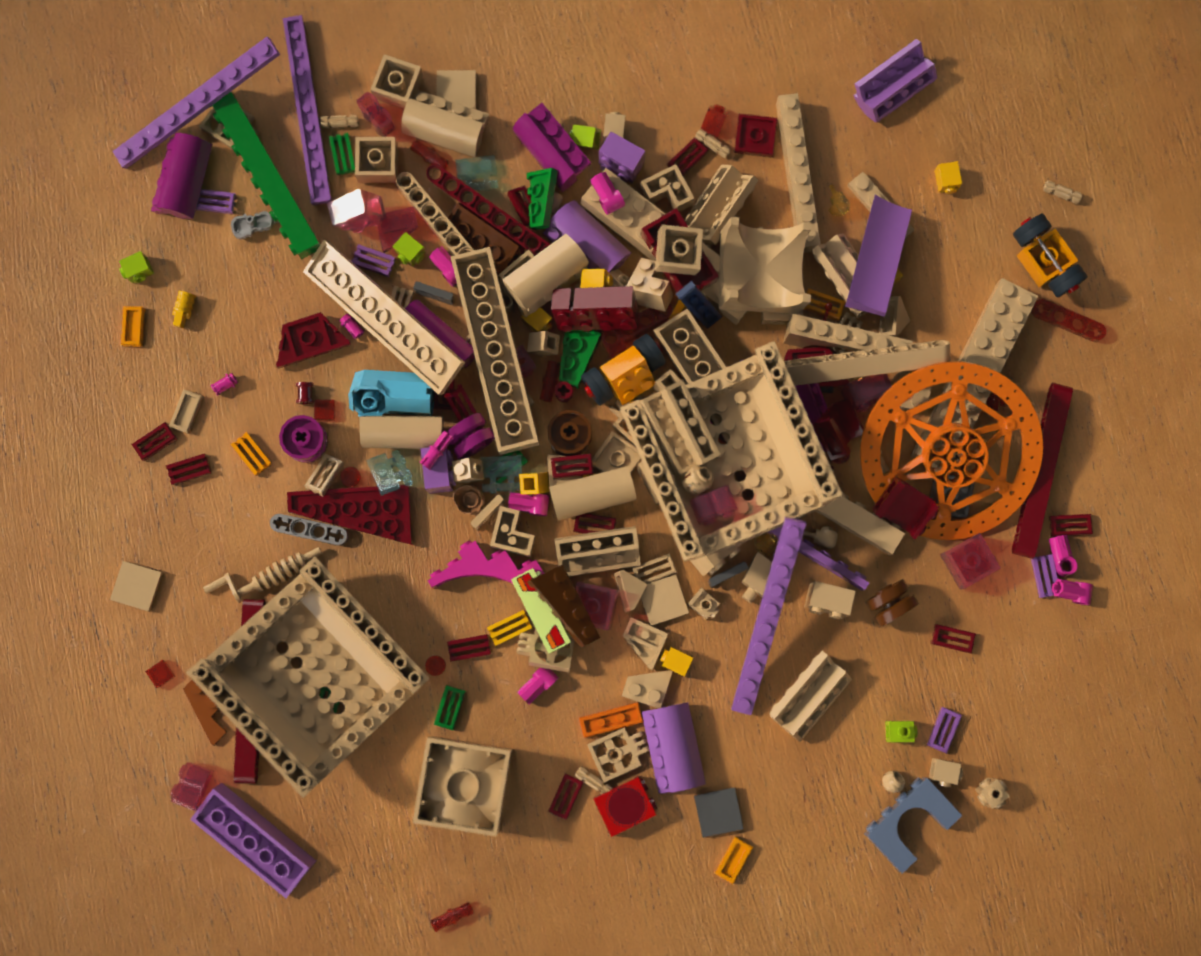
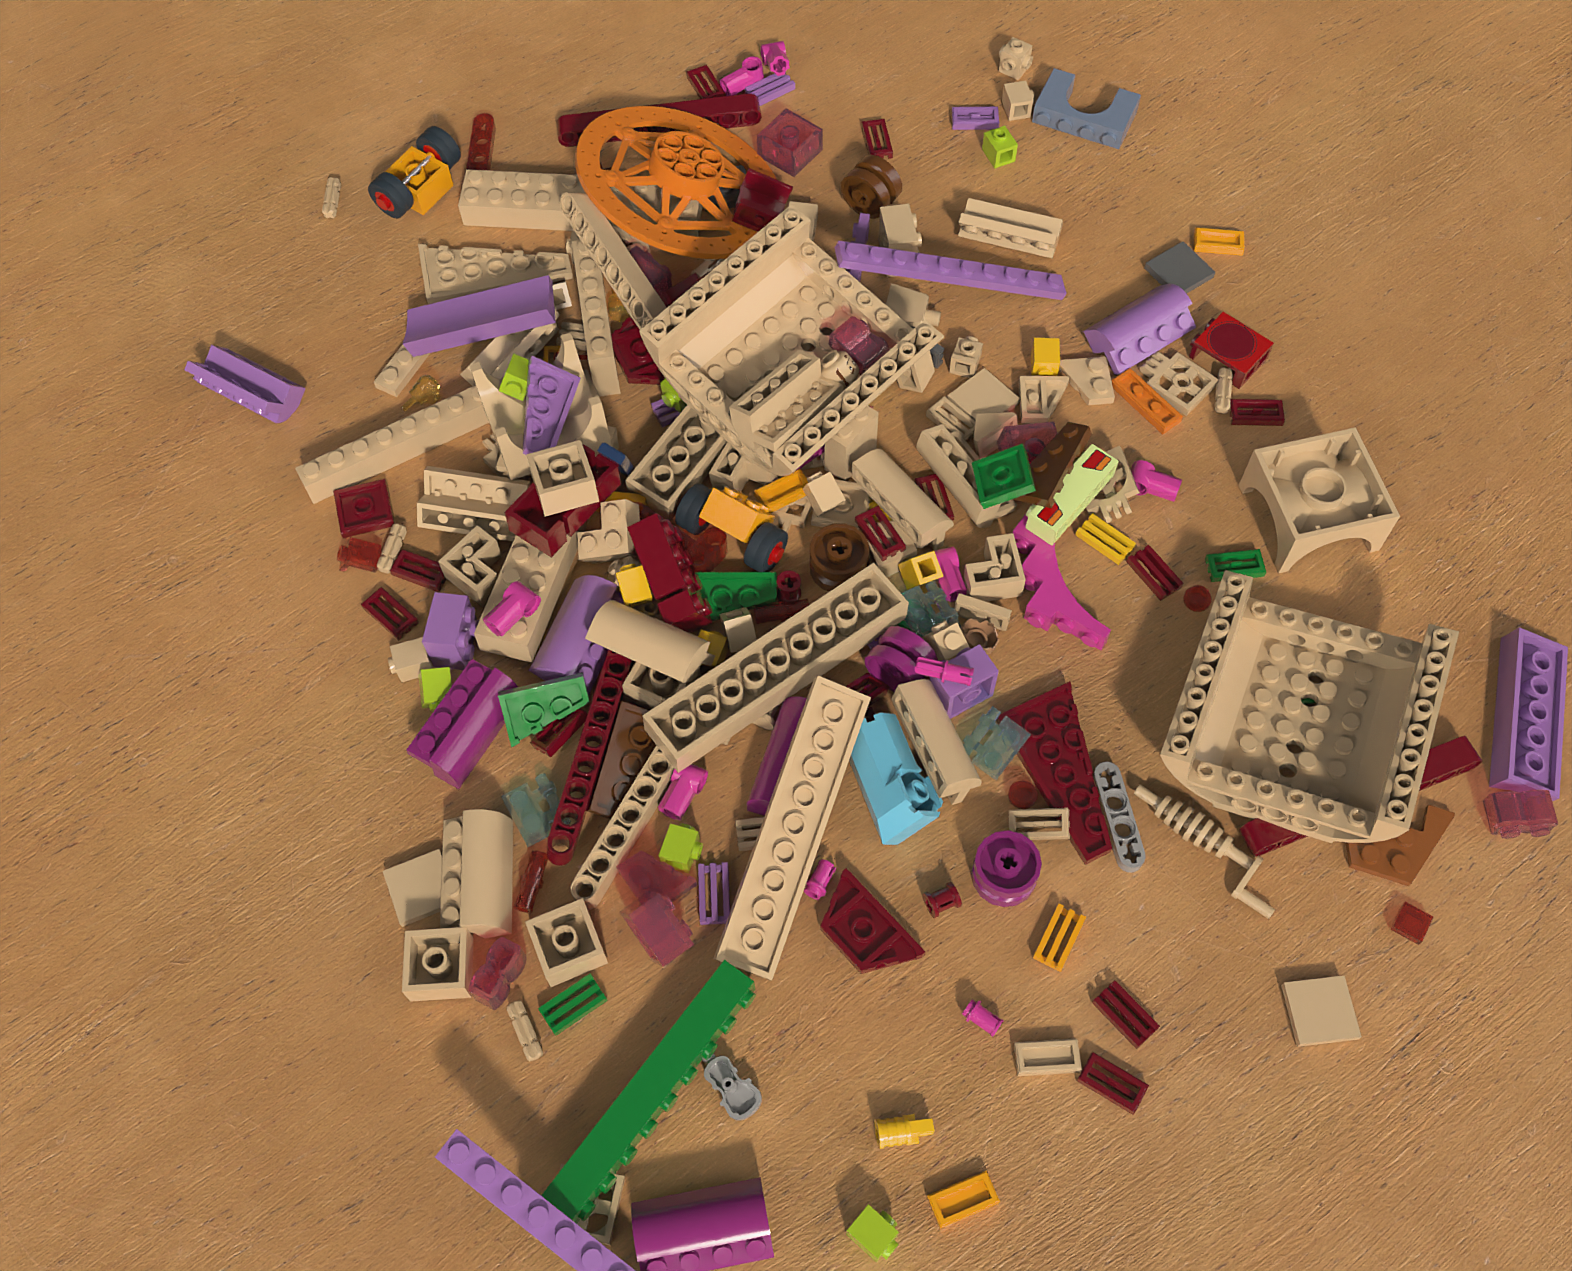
camera: 110 degrees left, 20 degrees down
(231, 203) = (699, 1138): medium lavender tile -> none
(307, 110) = (520, 1085): medium lavender plate -> none
(324, 410) = (951, 867): clear red tile -> none
(434, 293) = (727, 788): dark grey tile -> none
(452, 916) = (1460, 469): clear red pin -> none
(567, 562) = (1003, 476): none -> green plate
(619, 442) = (823, 492): none -> tan brick
(647, 135) = (403, 626): none -> dark red tile
(758, 268) = (547, 404): none -> medium lavender wing
(794, 258) = (516, 378): none -> lime brick
(893, 781) = (1053, 136): tan piece -> none
(938, 274) = (473, 270): none -> tan wing
(948, 177) = (352, 298): yellow brick -> none

